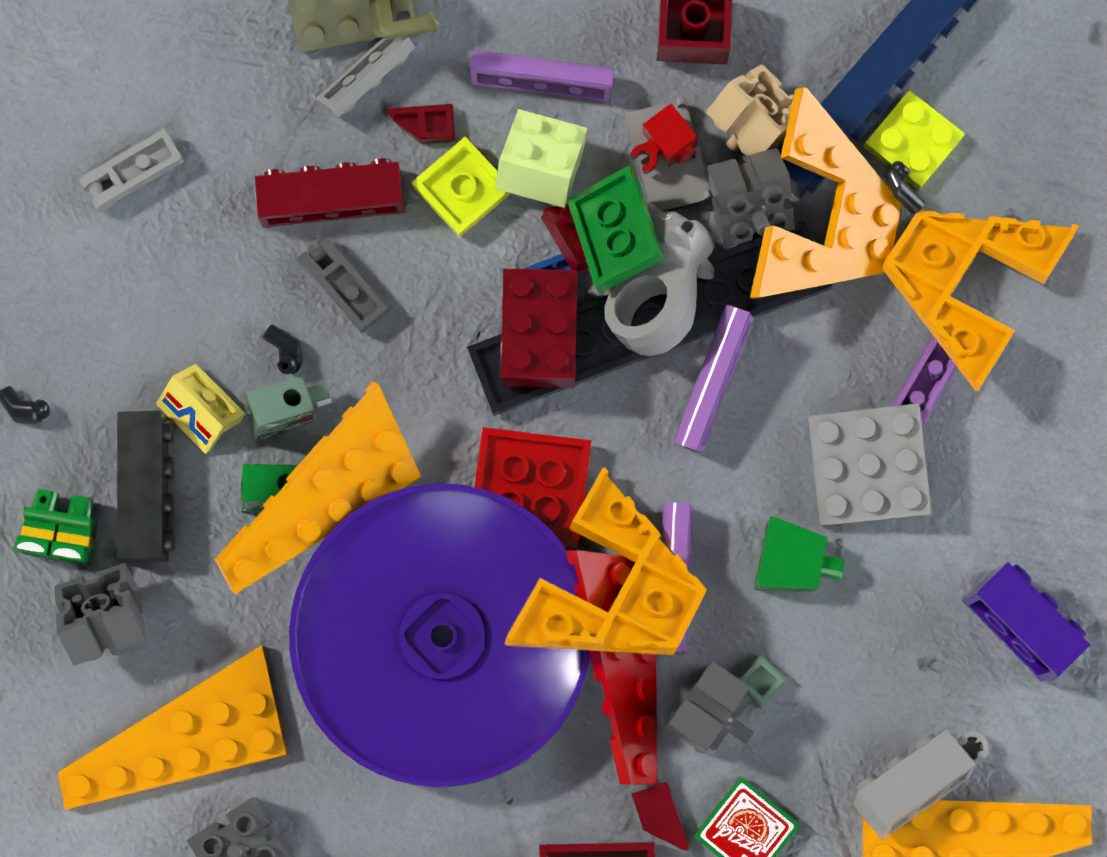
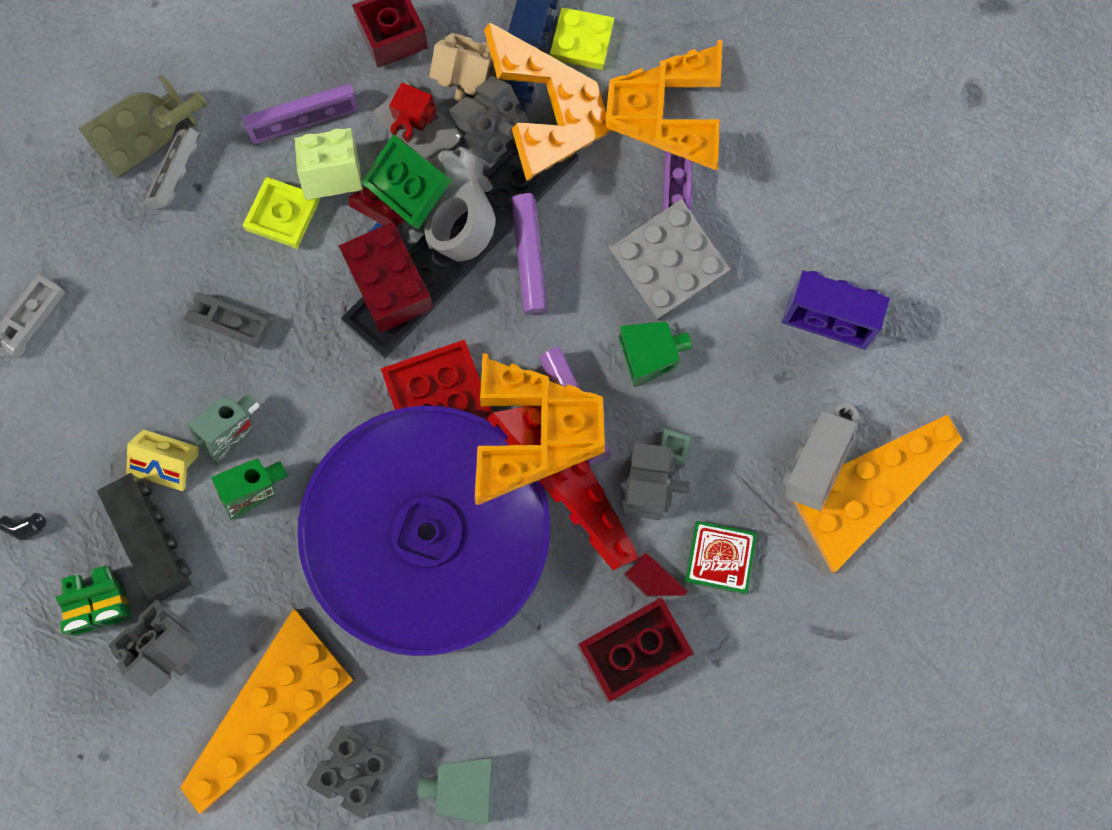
camera: 30 degrees left, 5 degrees down
(289, 349) = (207, 383): black arm -> none
(329, 193) = (185, 262): dark red brick -> none
(338, 476) = (287, 454): light orange wing -> none
(426, 123) = (233, 183): dark red tile -> none
(900, 189) = (590, 70): black arm -> none

